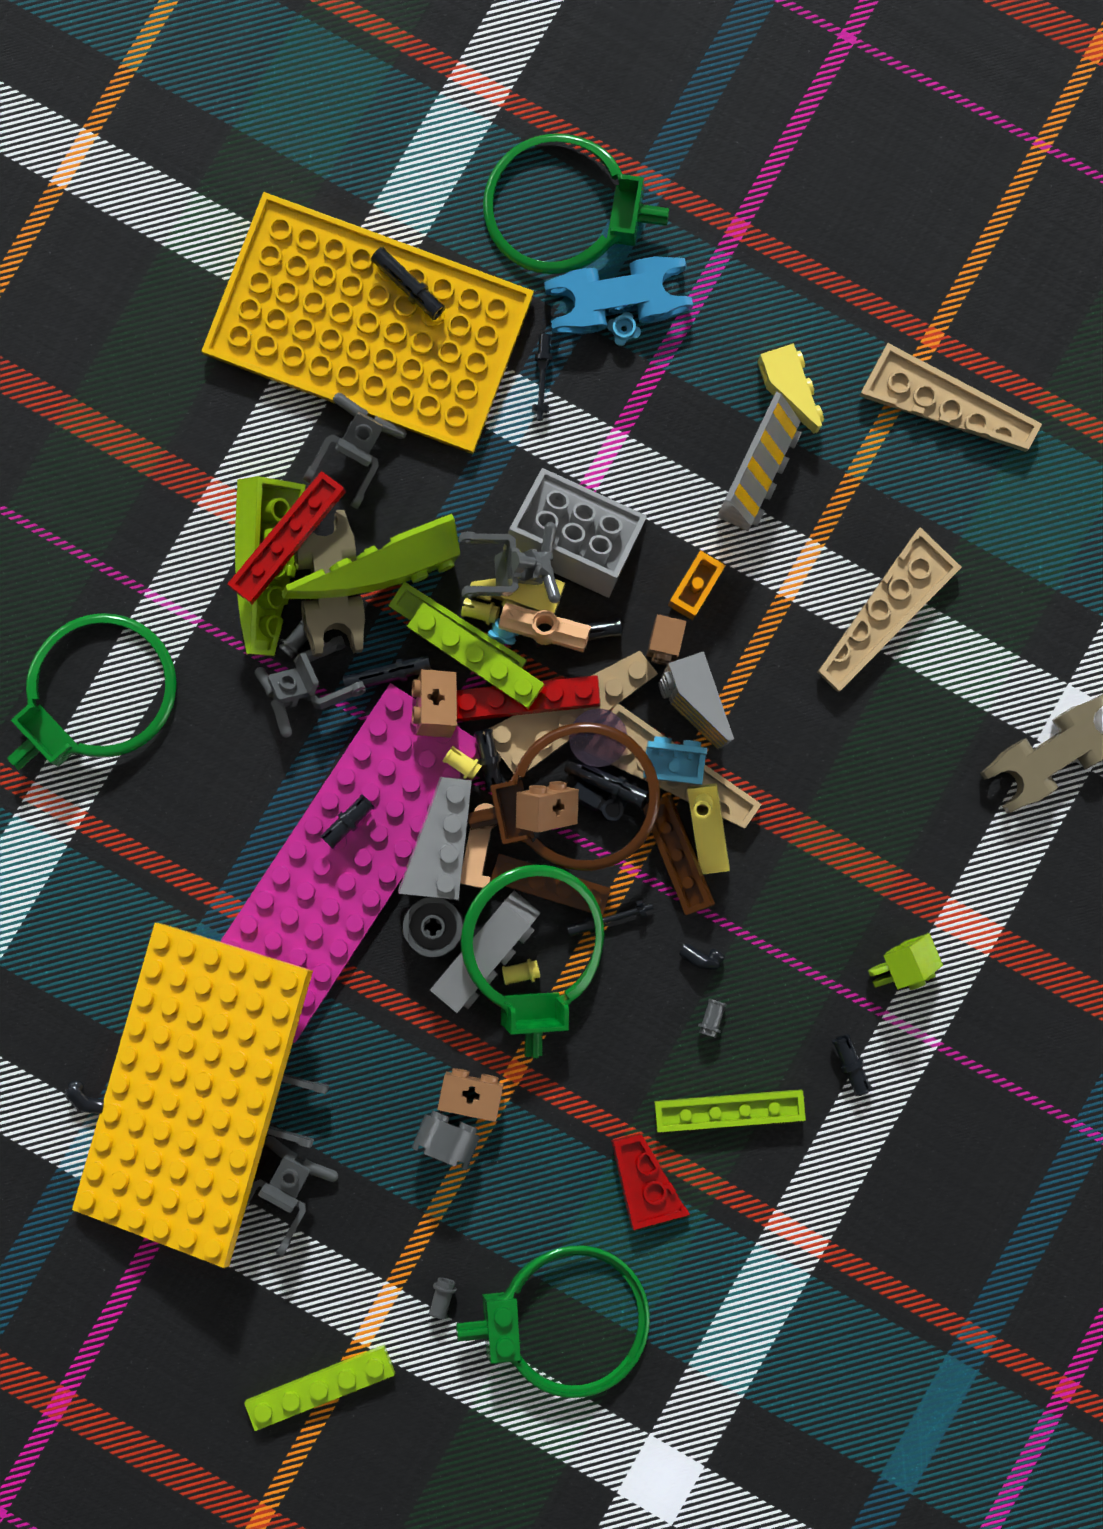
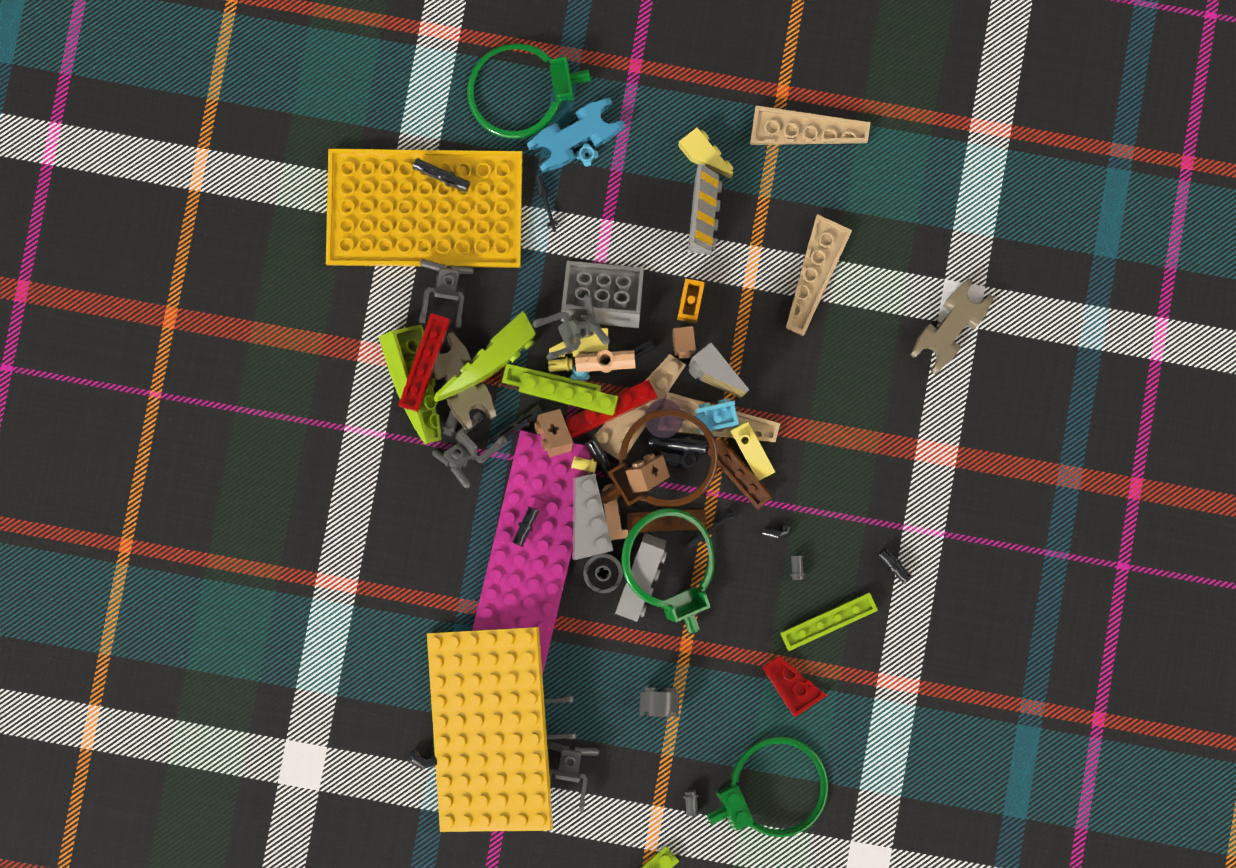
camera: 20 degrees left, 0 degrees up
(49, 737) = (318, 541): green brick -> none
(455, 1101) = (674, 674): medium nougat brick -> none
(521, 972) = (667, 582): light yellow pin -> none
(909, 964) = (907, 489): lime brick -> none

